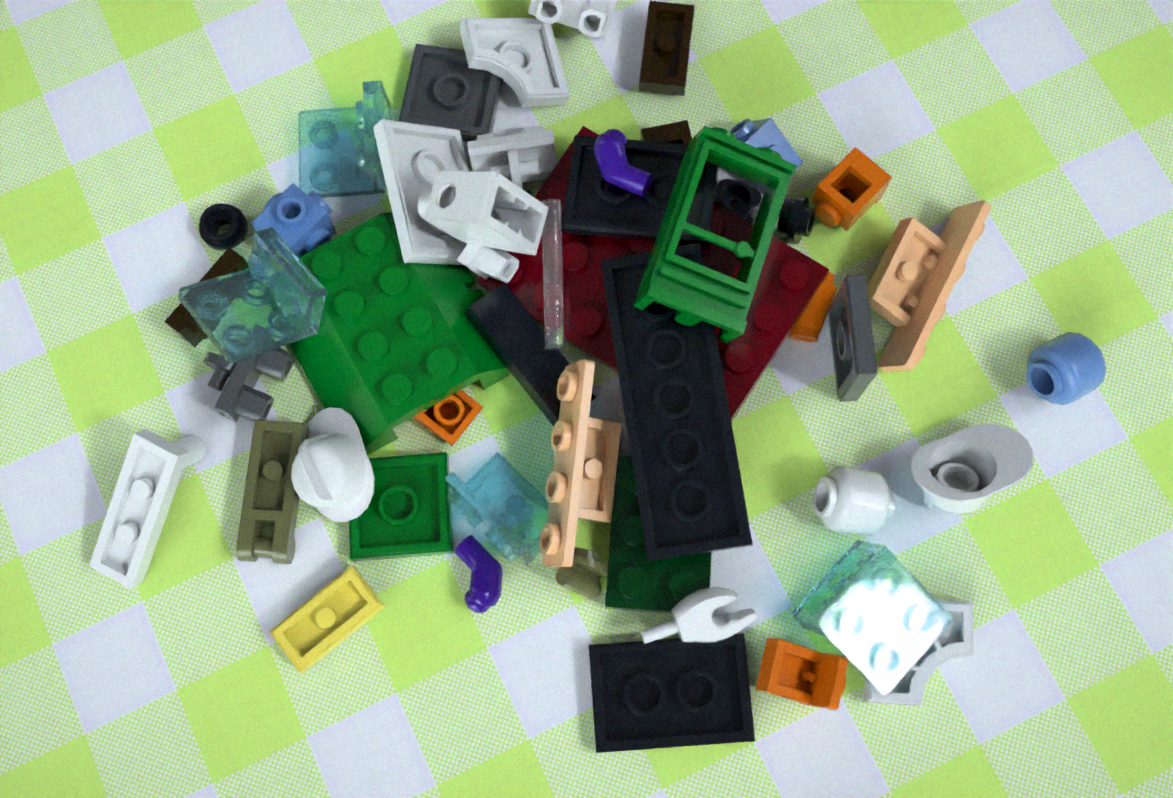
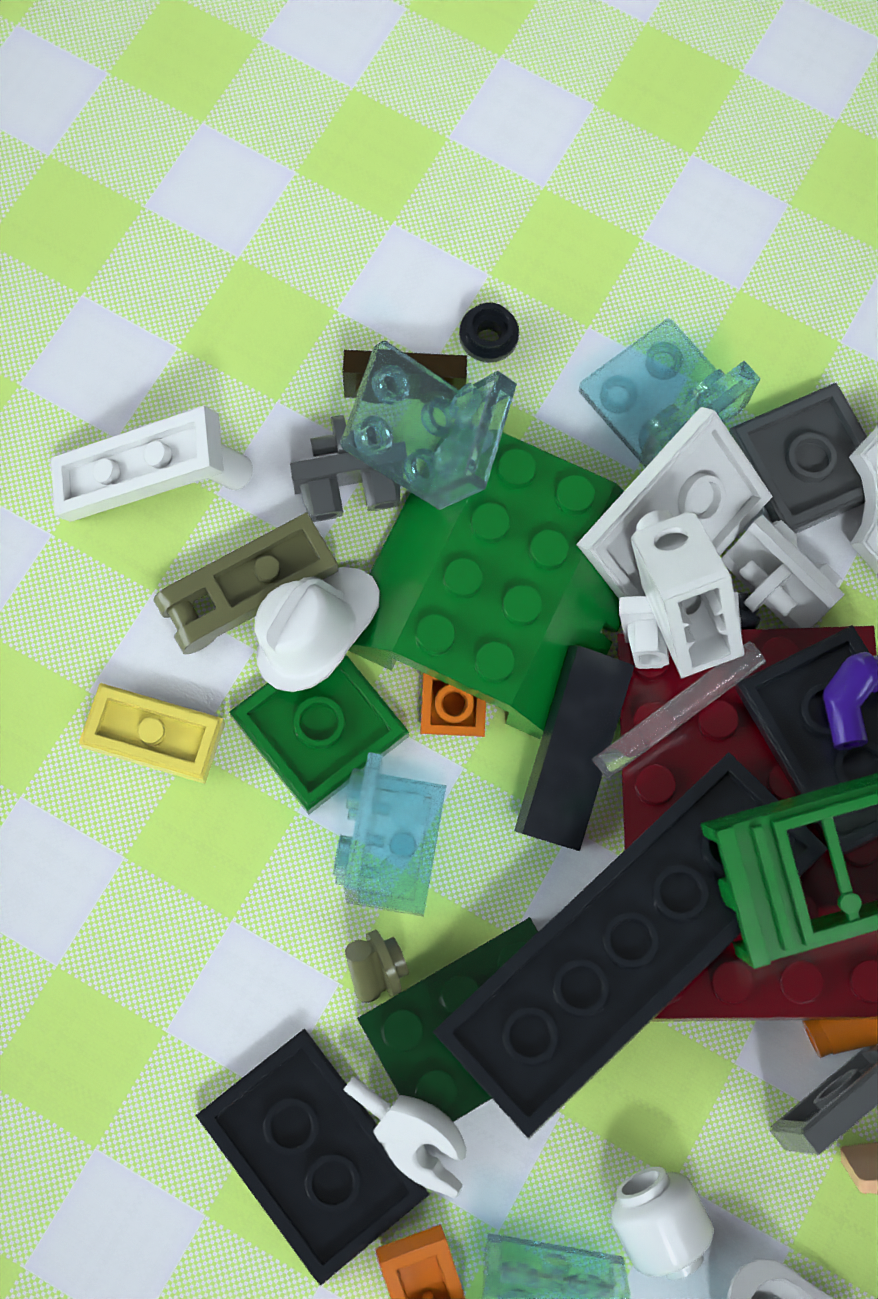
camera: 45 degrees right, 0 degrees up
(298, 219) = (545, 403): medium blue brick -> none
(485, 575) = (305, 866): dark purple arm -> none
(582, 466) = (490, 890): light nougat bracket -> none

